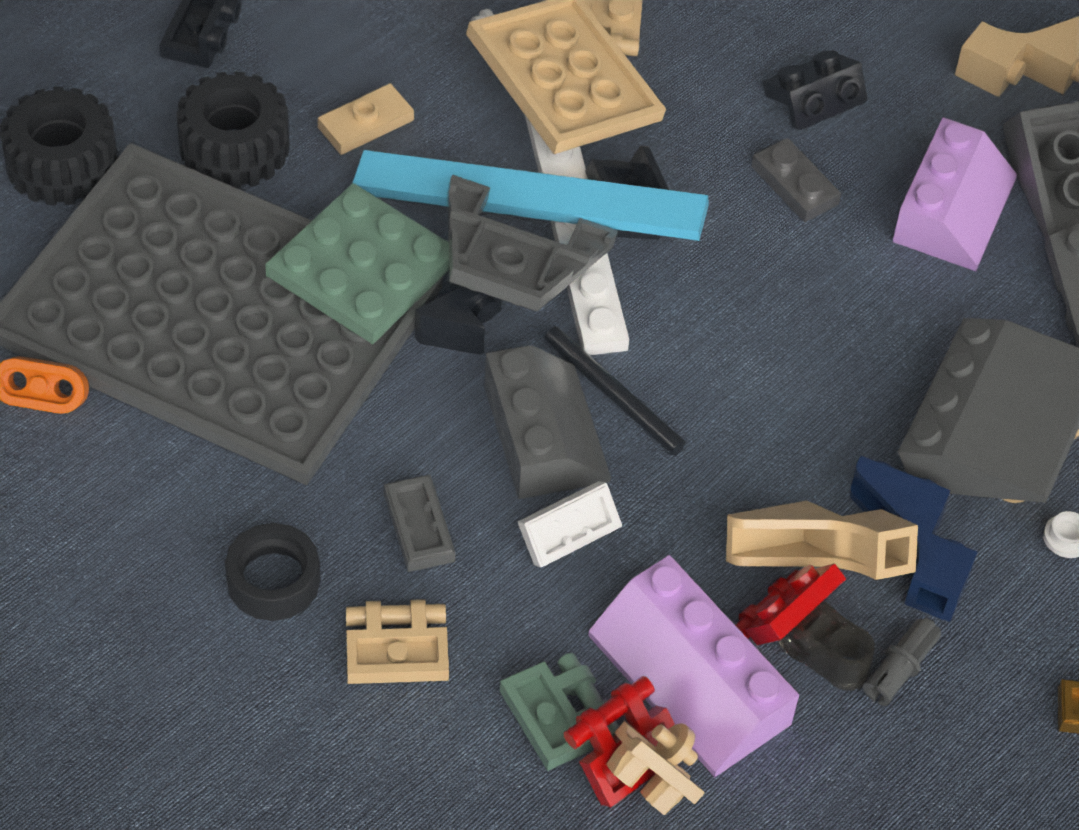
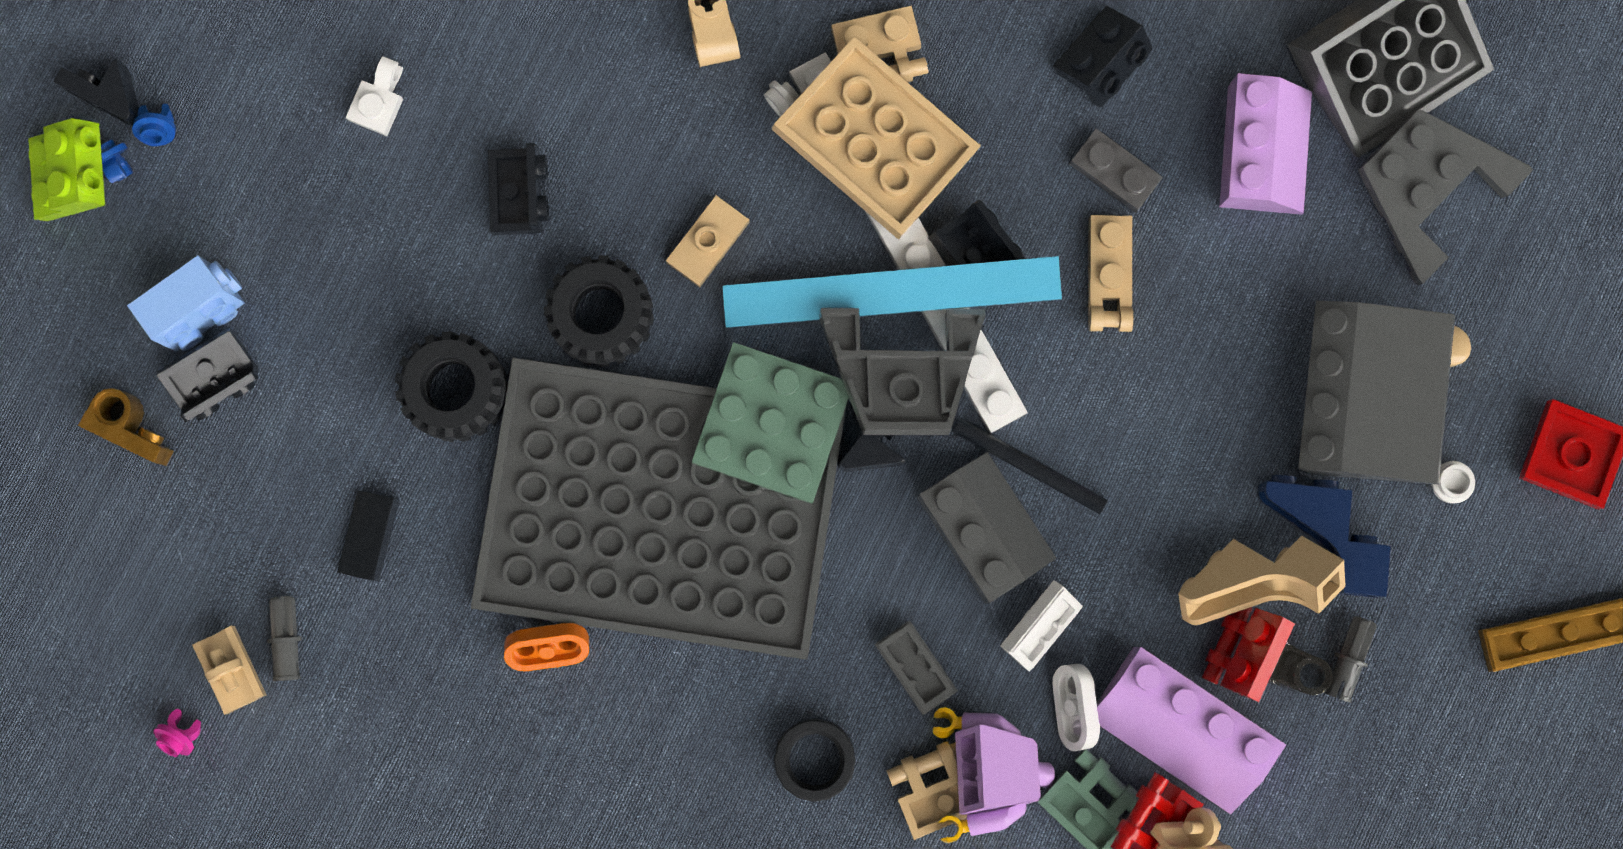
camera: 15 degrees left, 30 degrees up
(461, 633) = (994, 771): none -> lavender torso
(578, 608) = (1076, 707): none -> white plate
(760, 255) = (1110, 272): none -> tan plate

